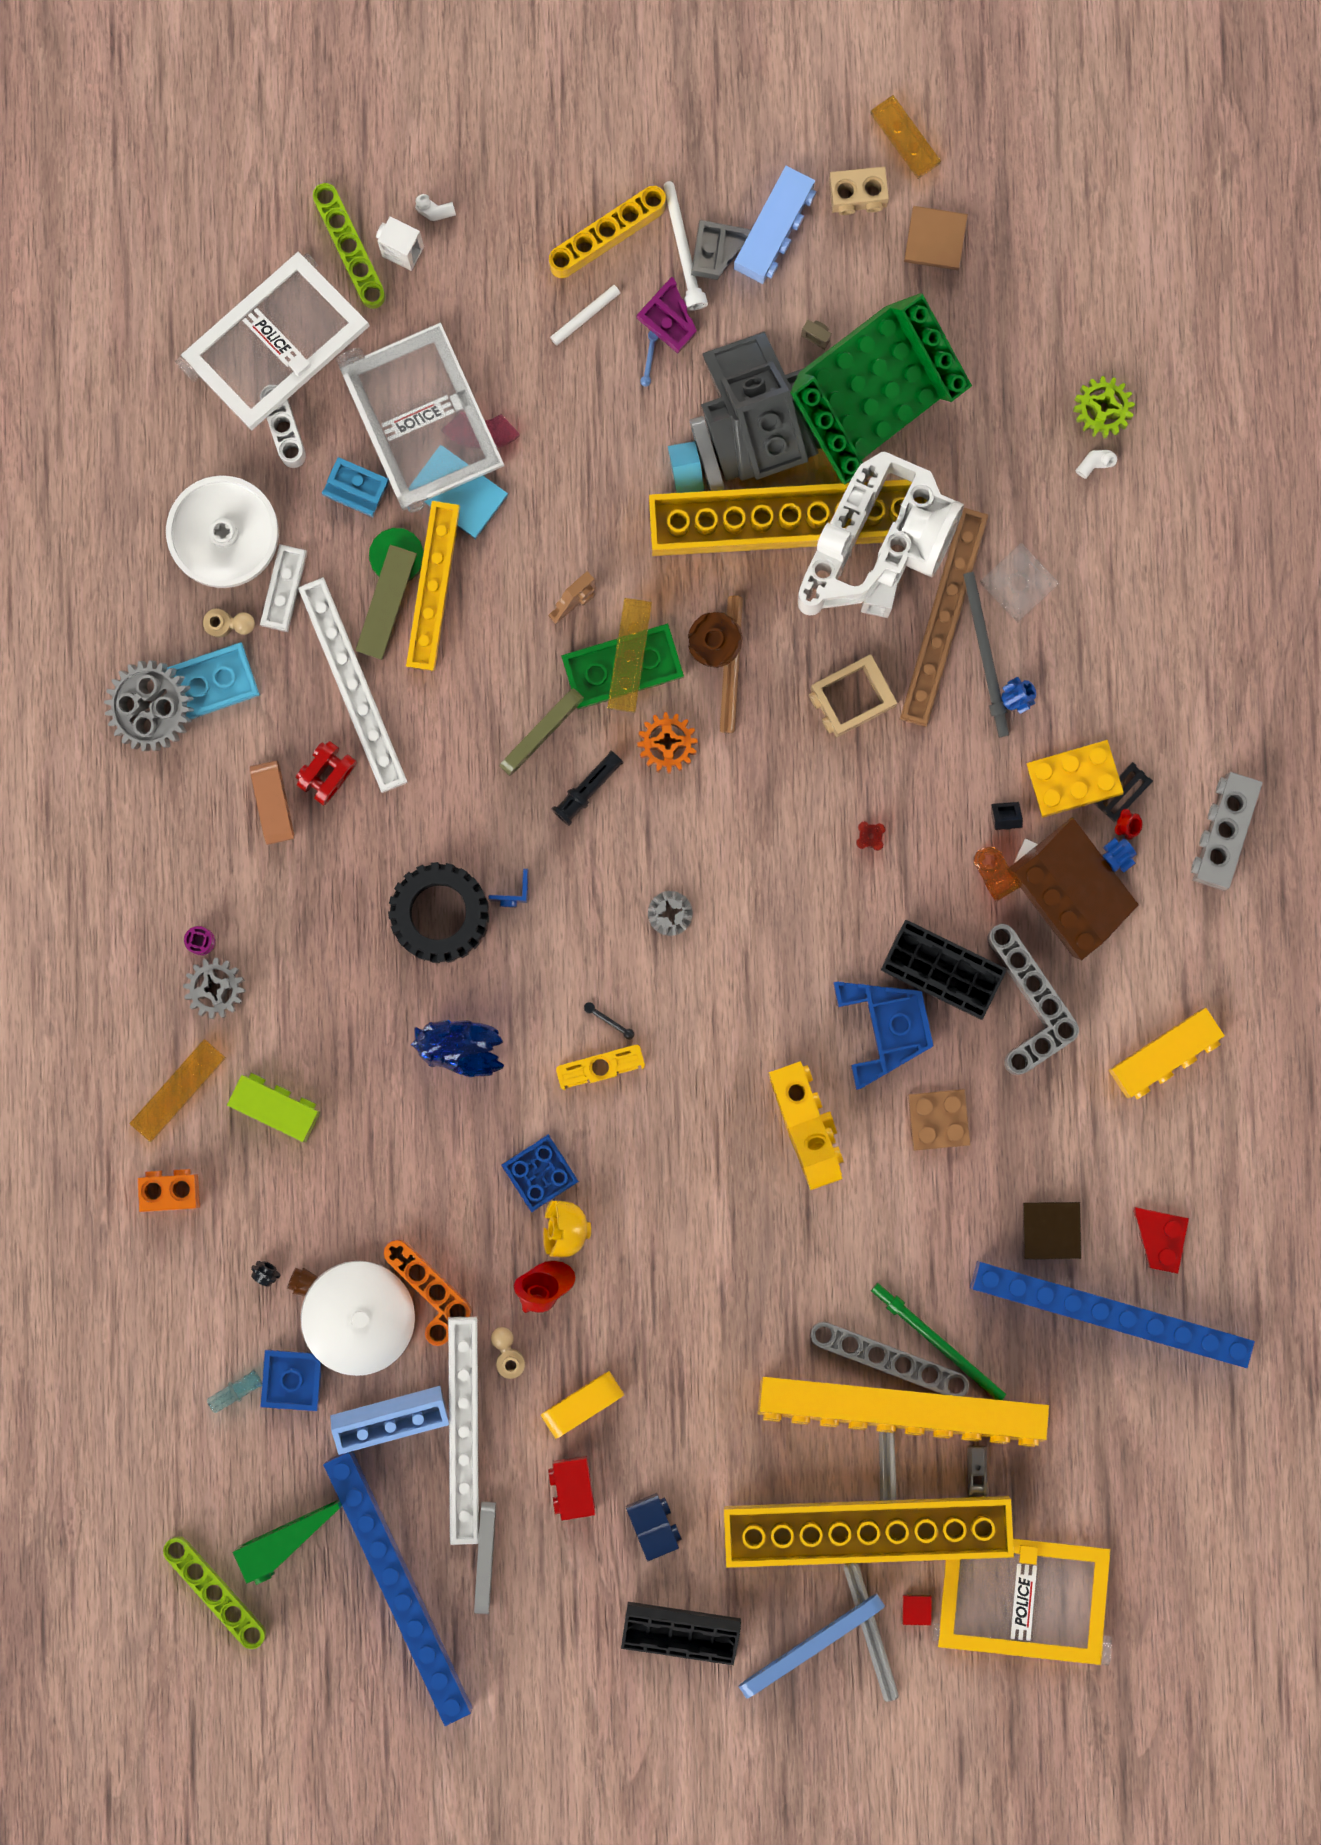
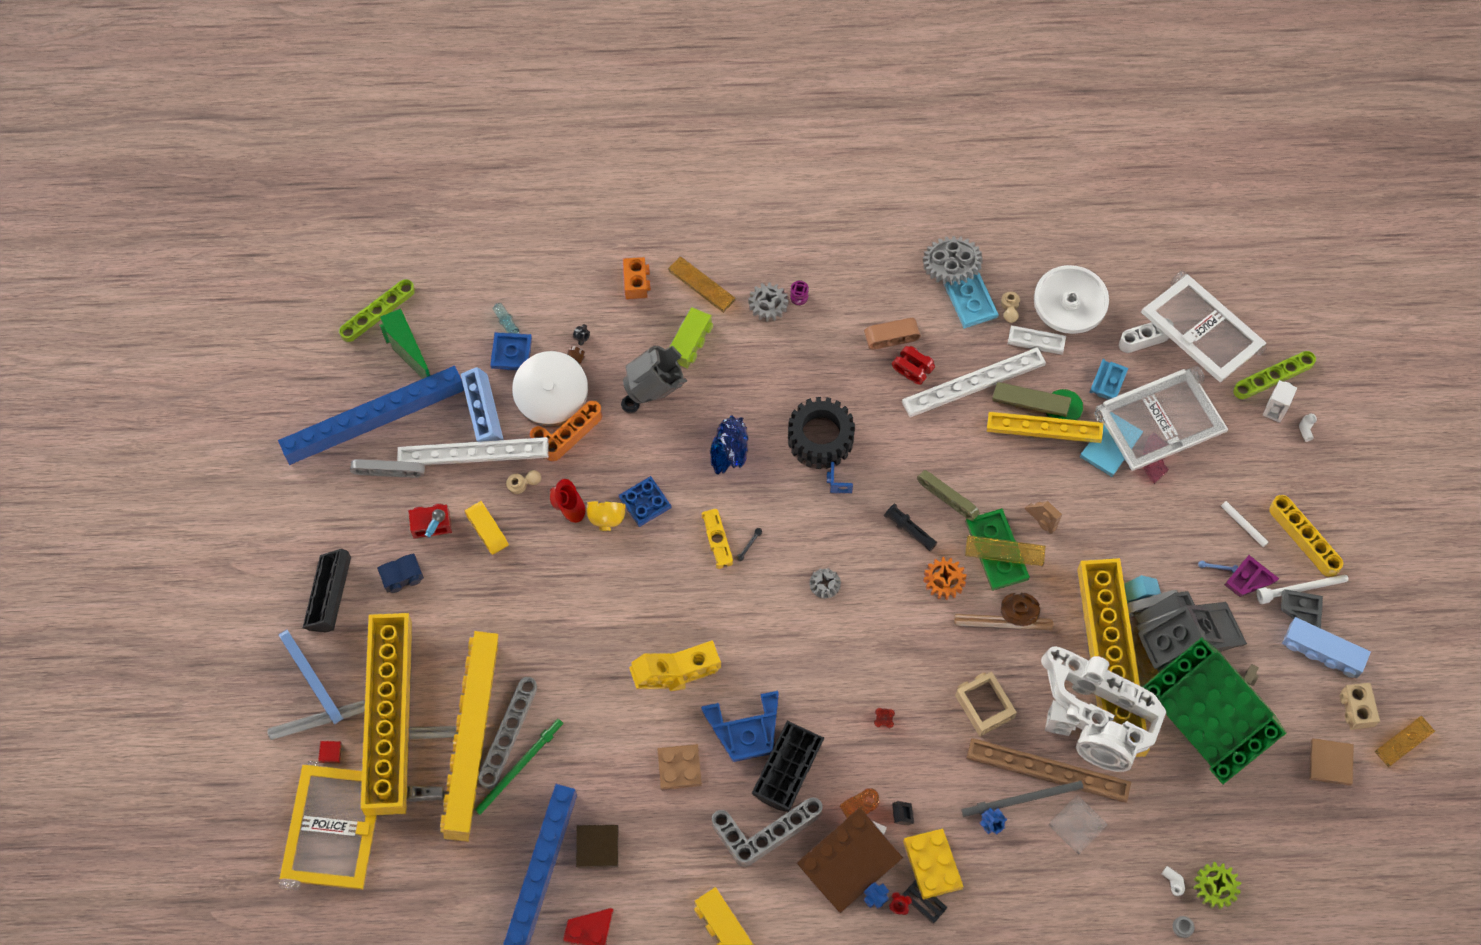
camera: 90 degrees right, 20 degrees down
(348, 1160) = (653, 374): none -> dark grey piece
(373, 1196) = (625, 401): none -> black plate
(575, 1475) = (437, 517): none -> piece
(1156, 456) = (1183, 927): none -> light grey plate

